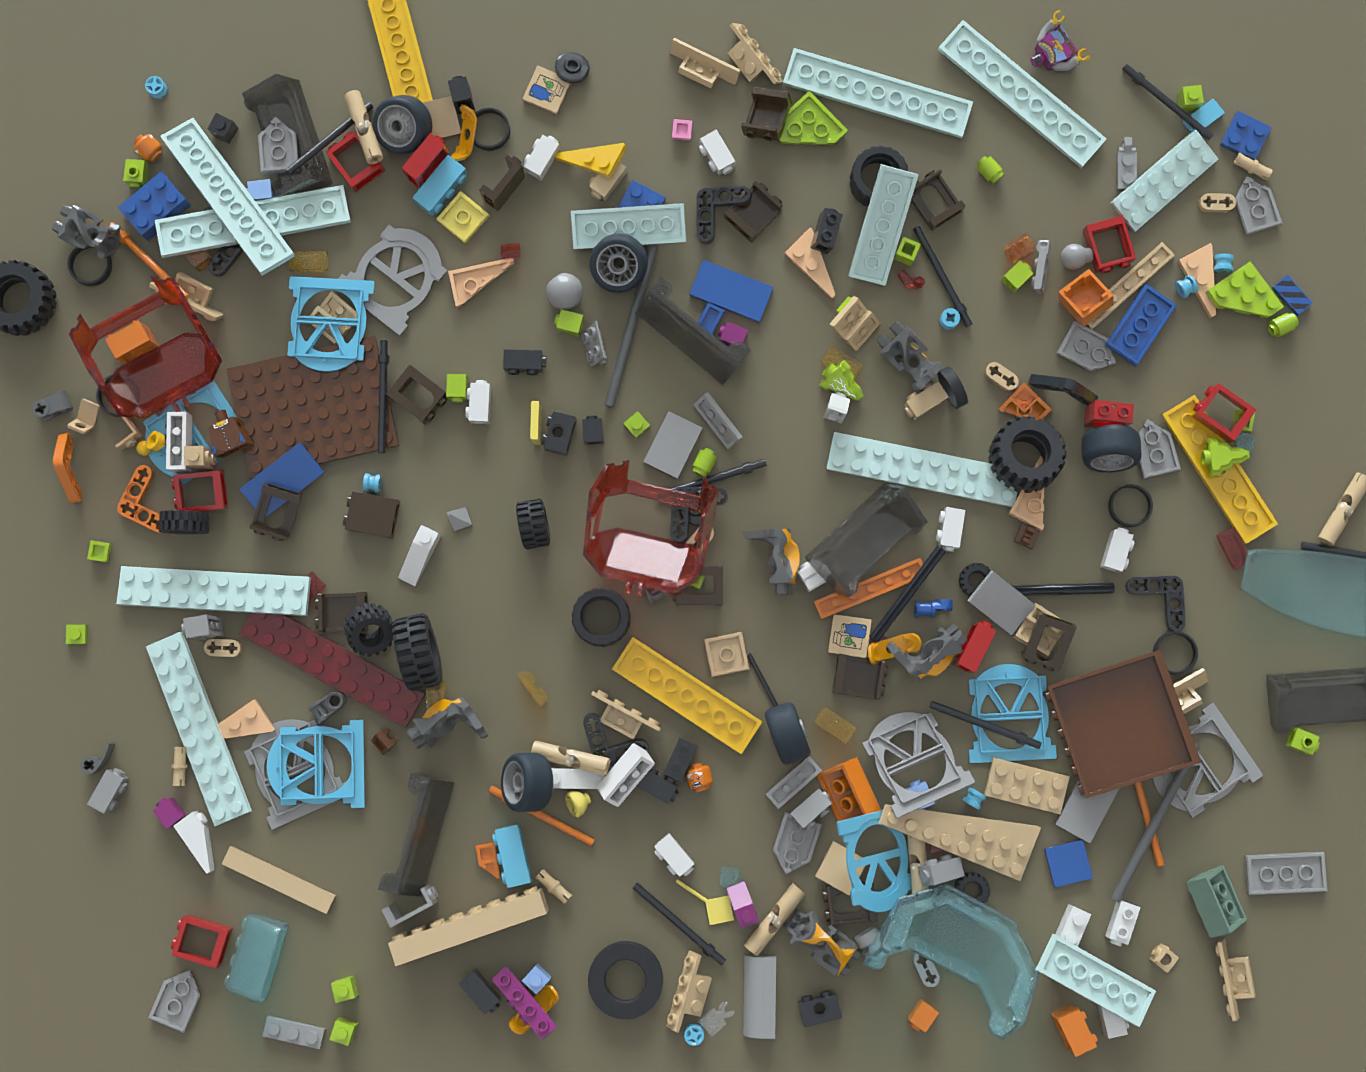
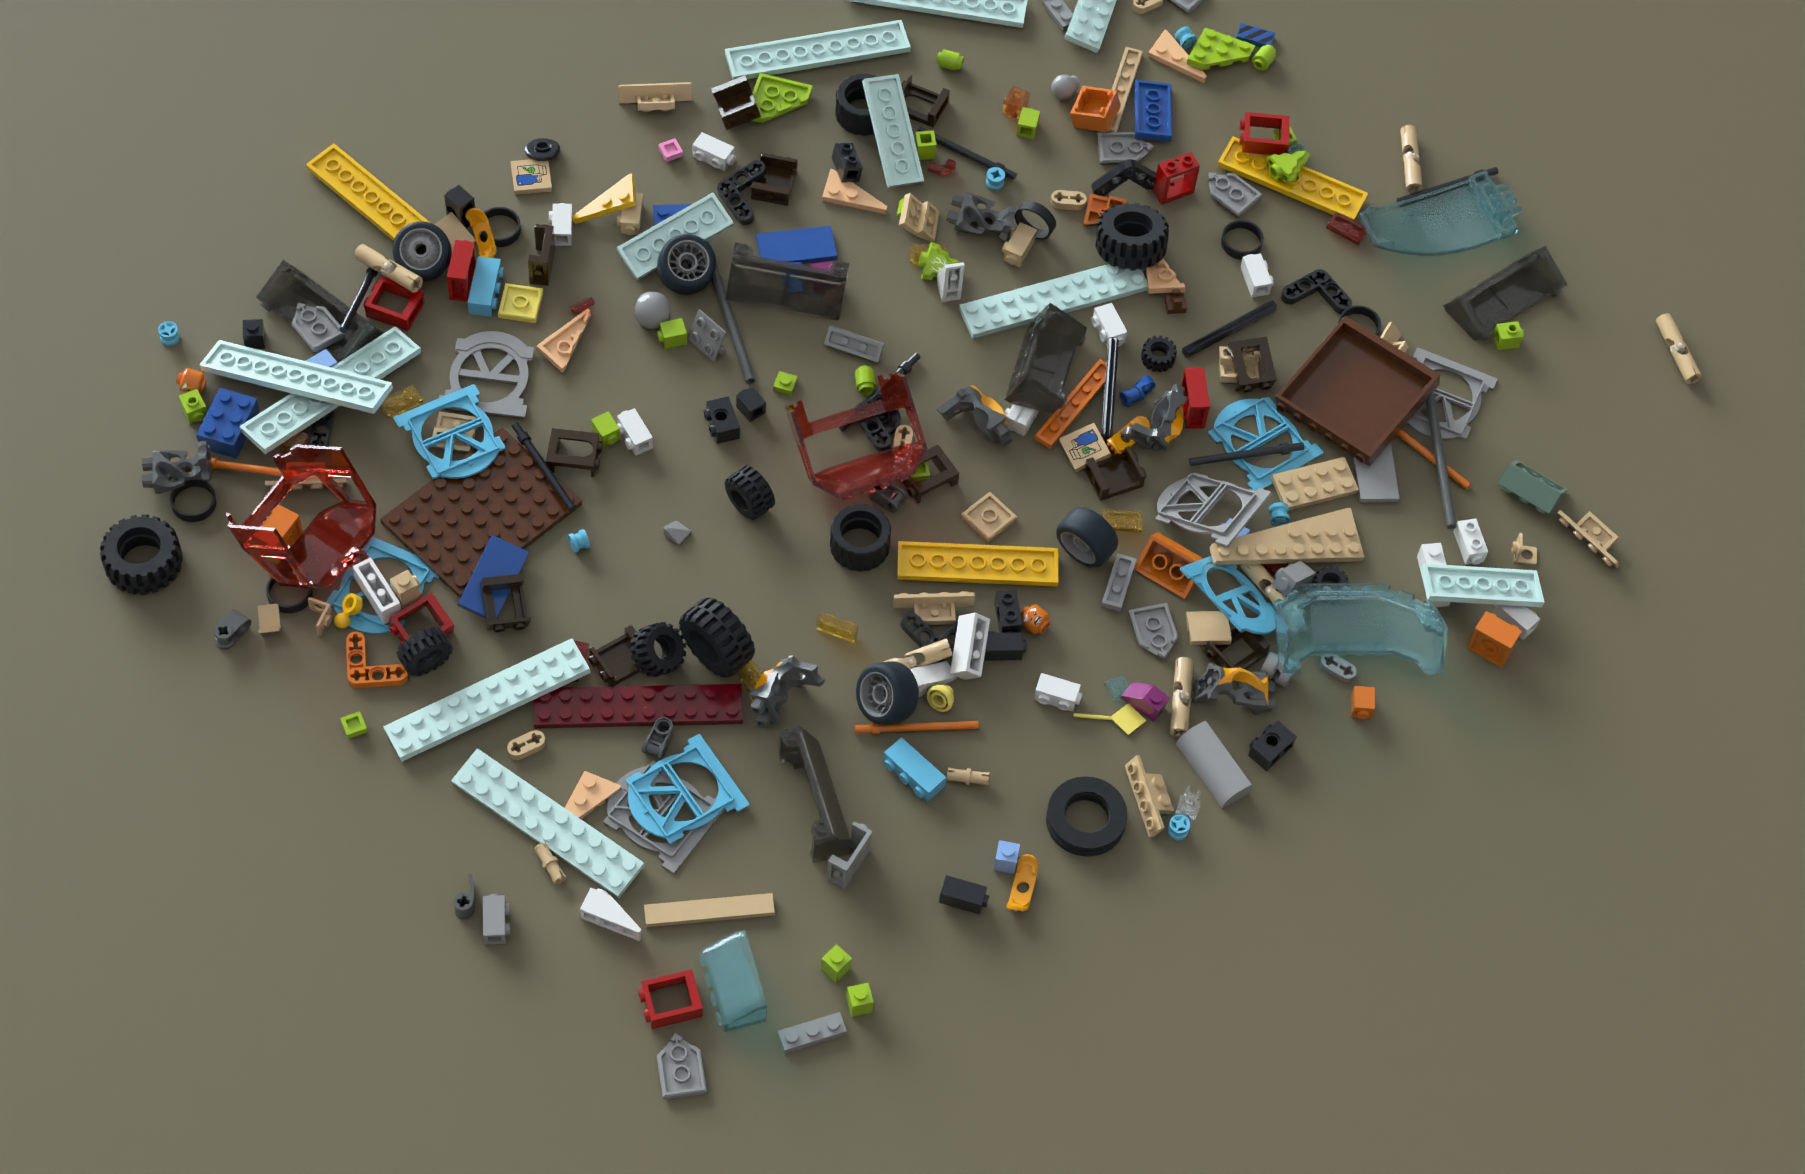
camera: 40 degrees left, 25 degrees down
(61, 463) = (274, 656): orange beam -> none
(76, 634) = (375, 807): lime plate -> none
(169, 812) = (566, 906): magenta brick -> none
(203, 627) = (501, 723): light grey brick -> none
(228, 435) = (421, 562): reddish brown torso -> none
(371, 514) = (594, 564): dark brown panel -> none
(382, 742) = (730, 741): reddish brown tile -> none
(419, 555) = (660, 575): white slope -> none
(466, 927) = (915, 842): tan brick -> none
(488, 859) = (893, 788): orange tile -> none
(524, 361) = (651, 381): black brick -> none
(525, 1004) = (1010, 879): magenta bracket -> none
(536, 422) = (697, 418): light yellow tile -> none
(672, 445) = (828, 383): light grey tile -> none
(708, 949) = (1143, 752): black bar -> none
(749, 57) = (688, 72): tan bracket -> none
(761, 678) = (1032, 520): black axle -> none
(810, 809) = (1148, 593): light grey brick -> none
(1001, 602) = (1189, 352): light grey tile -> none
(1041, 266) = (1041, 105): light grey hinge -> none
(1068, 863) = (1393, 524): blue tile -> none
(1111, 448) = (1196, 199): black wheel -> none
(1114, 223) = (1085, 50): red window -> none
(1186, 286) = (1169, 66): medium azure wheel -> none
(1285, 873) = (1571, 439): light grey tile -> none

